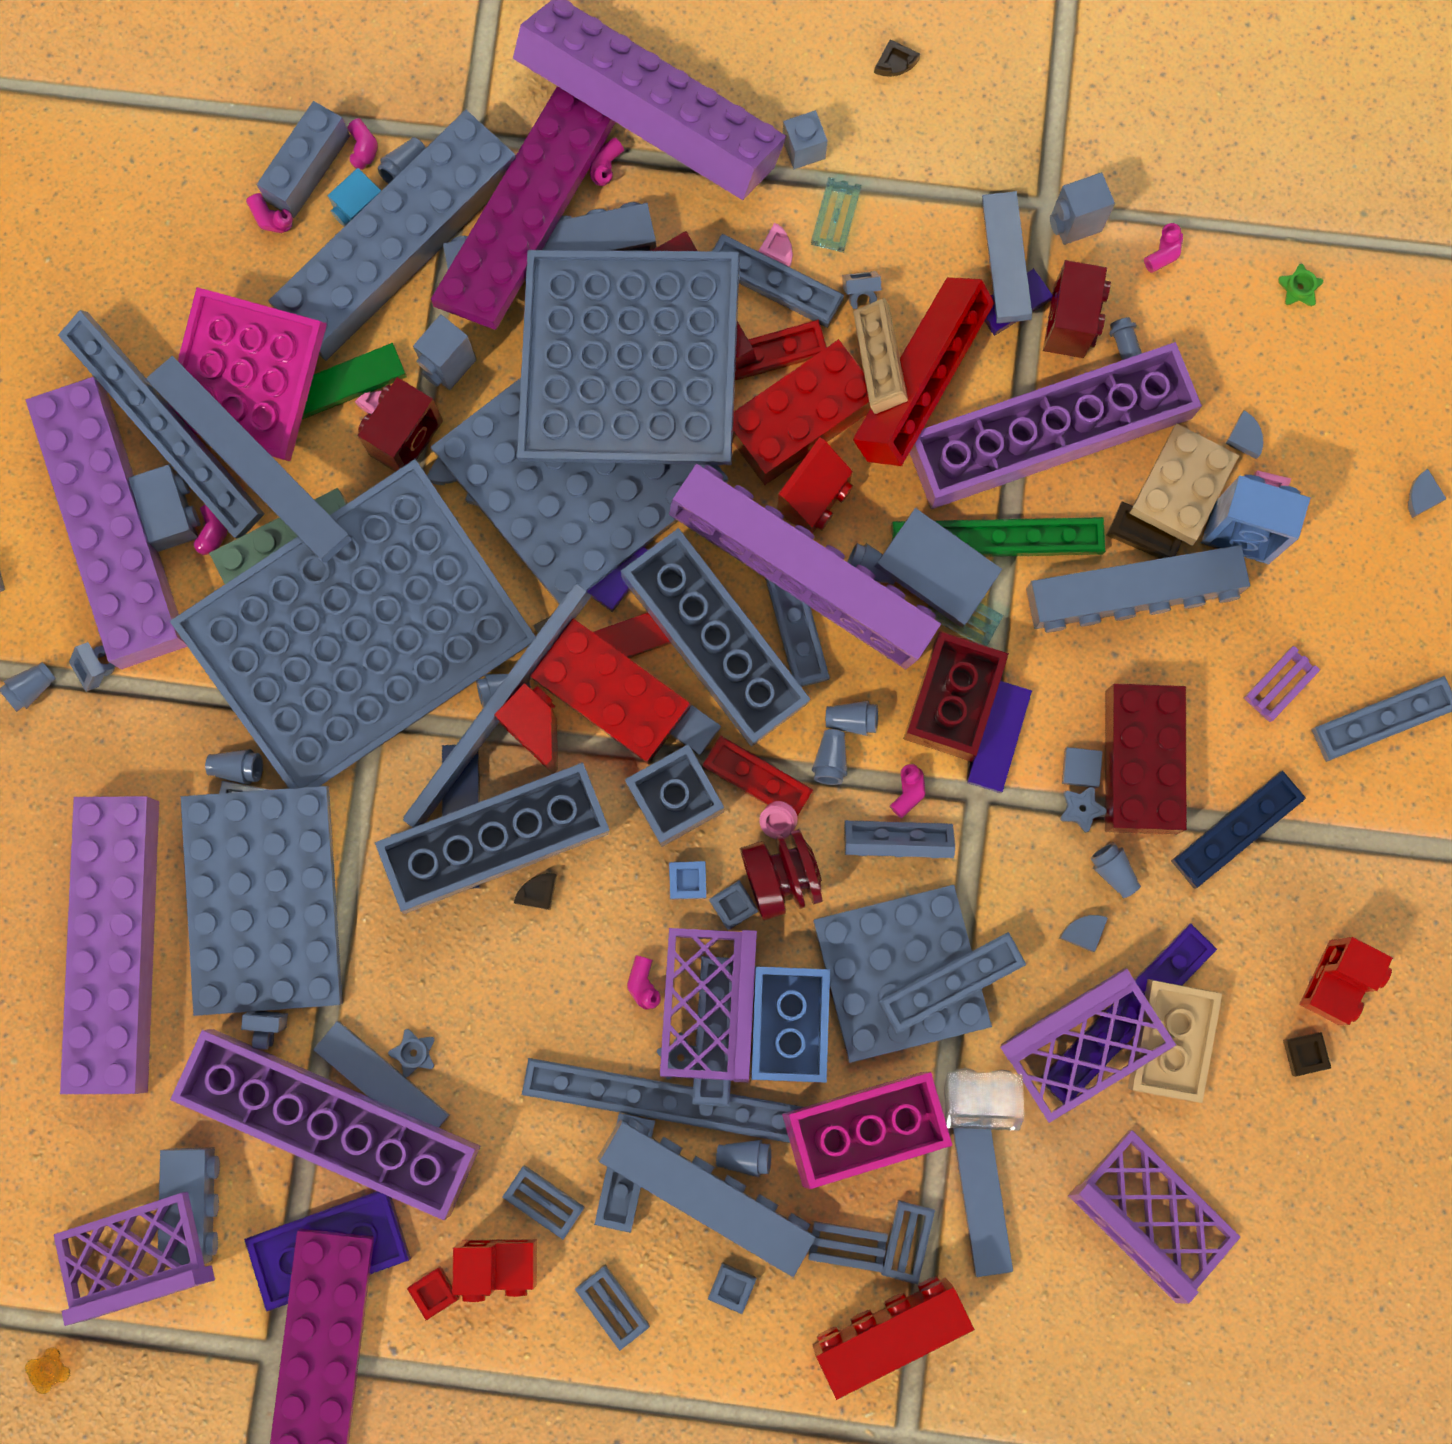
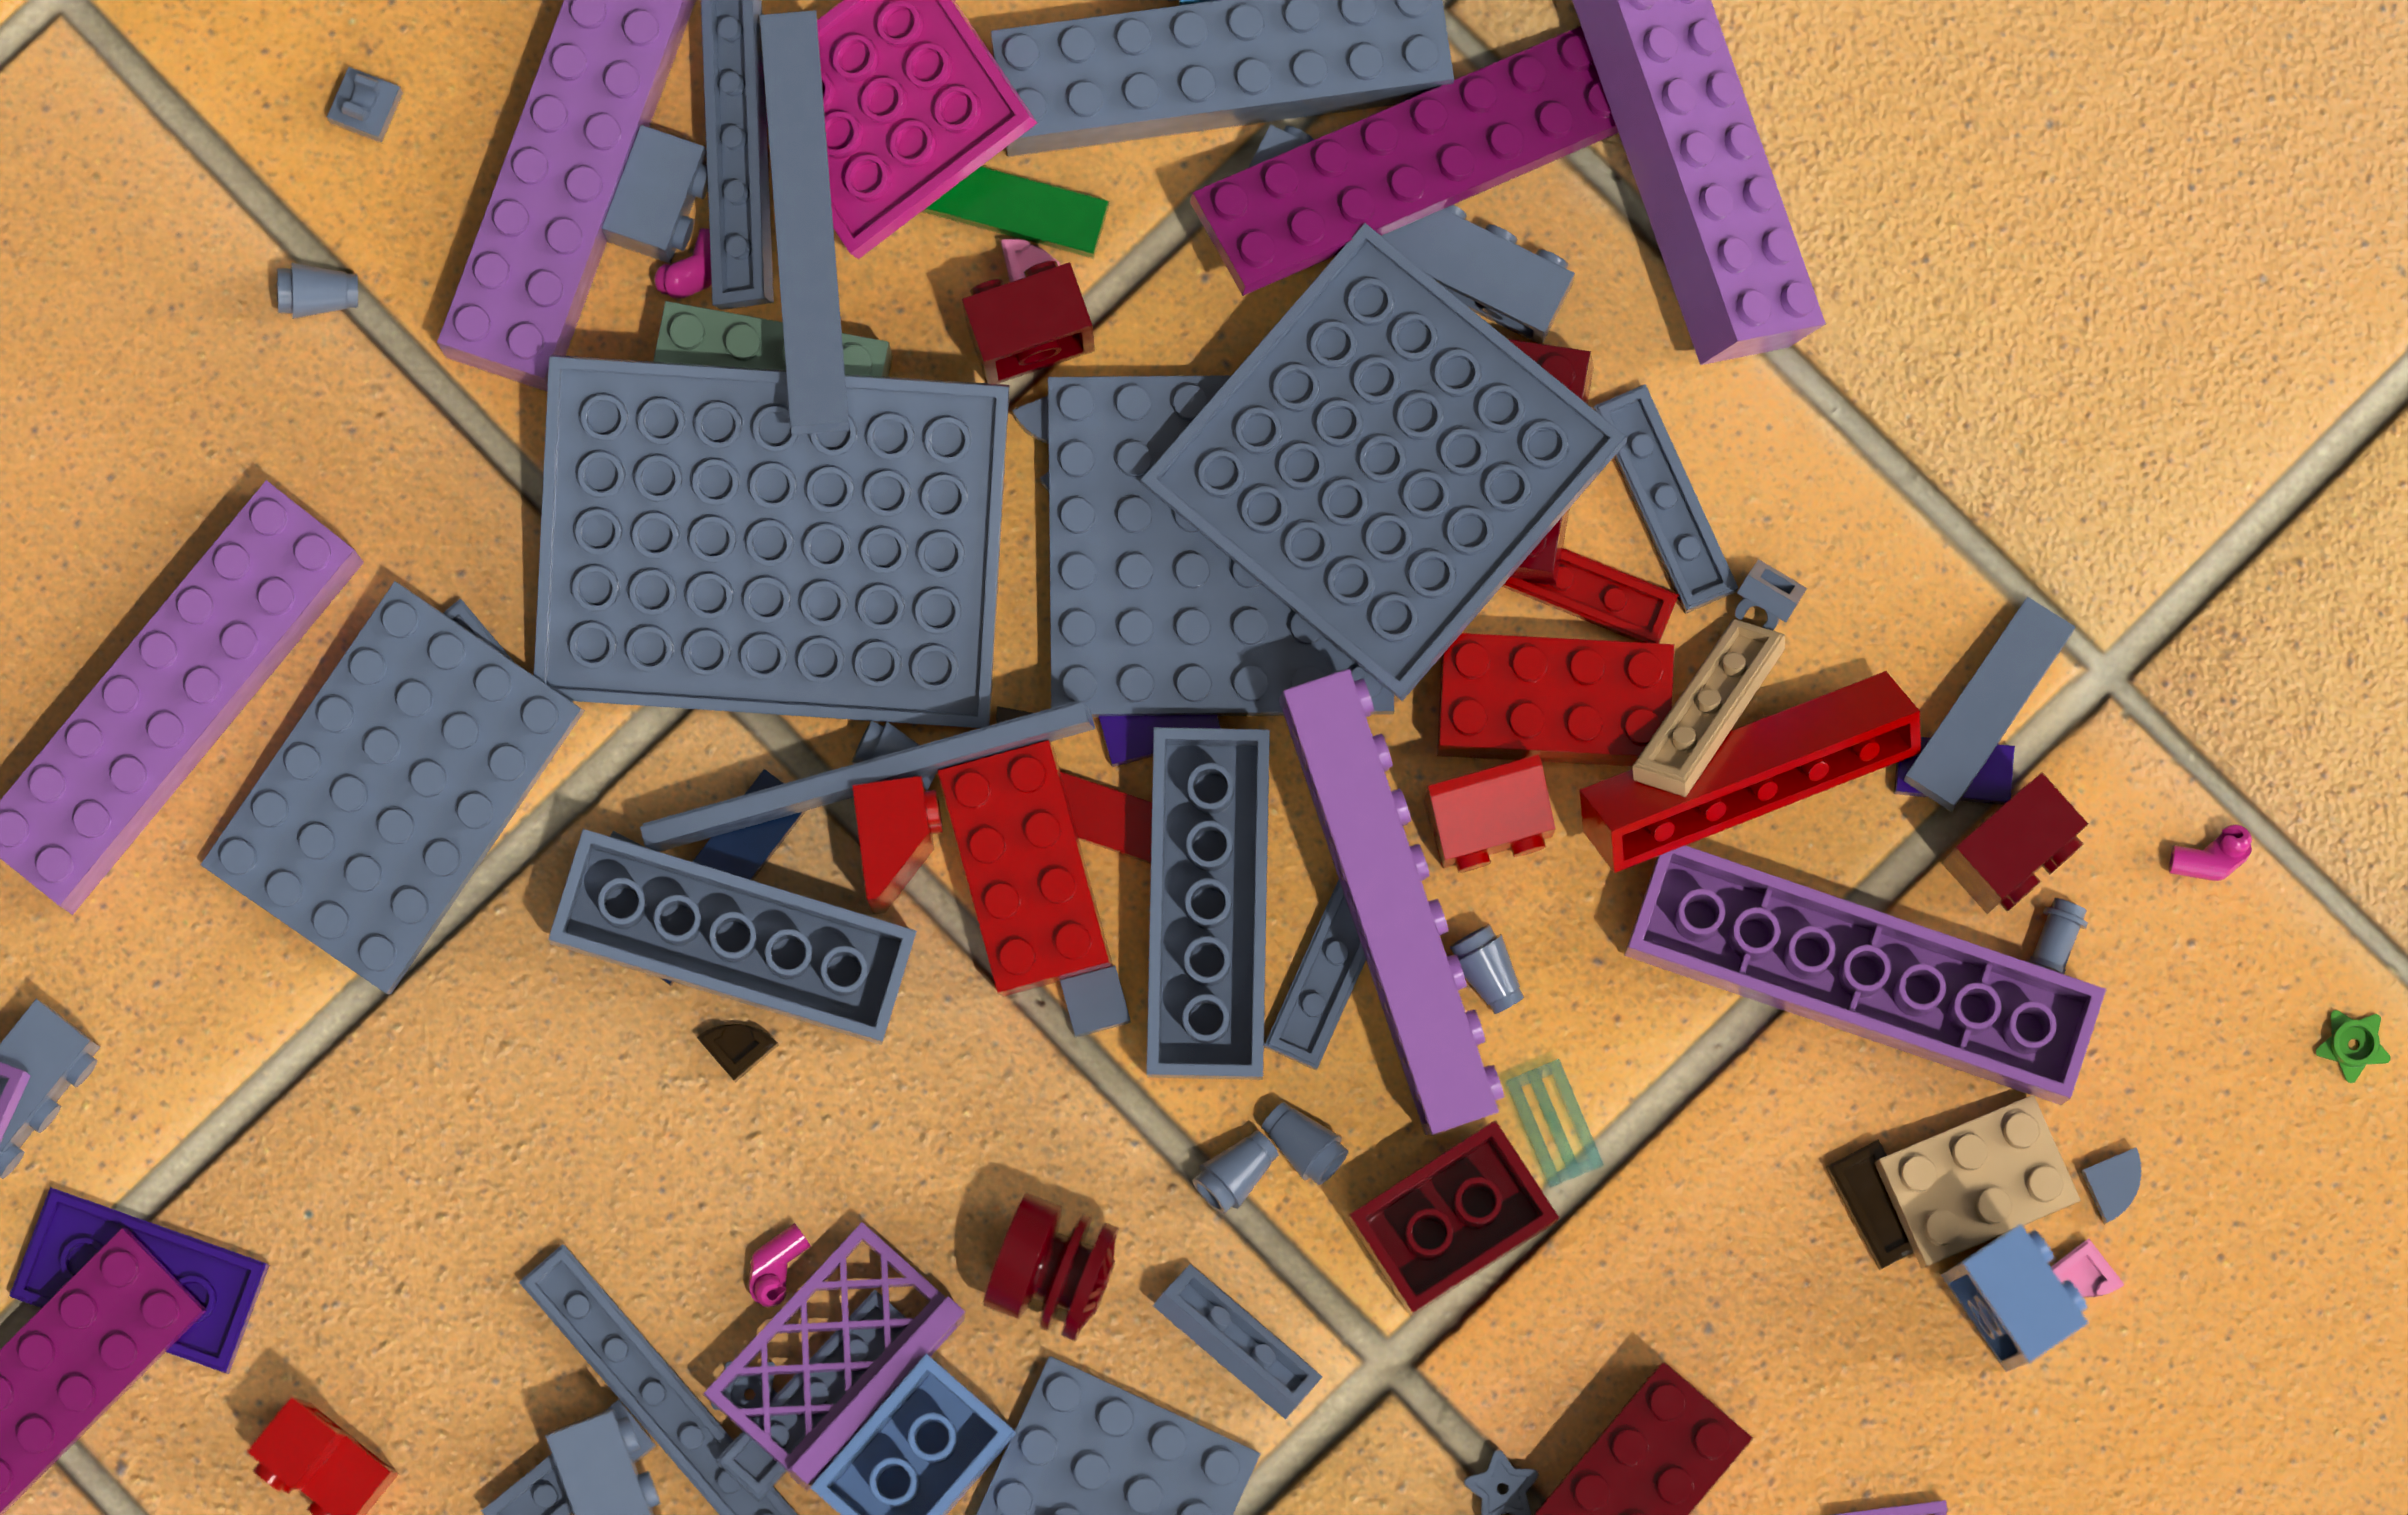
camera: 40 degrees right, 0 degrees up
(87, 666) = (408, 323): sand blue tile -> none
(236, 766) = (491, 594): sand blue cone -> none
(264, 1026) = (275, 947): sand blue tile -> none
(325, 1123) = (258, 1126): medium lavender brick -> none
(376, 1076) = (362, 1130): sand blue tile -> none
(411, 1063) = (415, 1115): sand blue plate -> none
(432, 1293) = (222, 1436): red tile -> none
(444, 353) = (1158, 271): sand blue brick -> none
(551, 1189) = (456, 1481): sand blue tile -> none
(601, 168) = (1559, 176): dark pink arm -> none
(675, 795) = (999, 1063): sand blue brick -> none
(687, 880) = (933, 1181): medium blue plate -> none
(733, 905) = (965, 1258): sand blue tile -> none
(755, 775) = (1124, 1123): red tile -> none
(778, 246) = (1705, 457): bright pink tile -> none
(778, 819) = (1106, 1196): bright pink tile -> none
(805, 139) = (1850, 344): sand blue brick -> none
(842, 189) = (1853, 445): clear light blue tile -> none
(896, 60) = (2063, 327): dark brown tile -> none
(912, 788) = (1307, 1293): dark pink arm -> none
(938, 568) = (1566, 1038): sand blue tile -> none
(1000, 738) = (1472, 1314): dark purple tile -> none
(1027, 536) = (1680, 1060): green tile -> none
(1082, 208) = (2132, 718): sand blue brick -> none
(1082, 767) = (1545, 1437): sand blue tile -> none
(1138, 587) = (1803, 1266): sand blue brick -> none
(1424, 494) = (2284, 1443): sand blue tile -> none

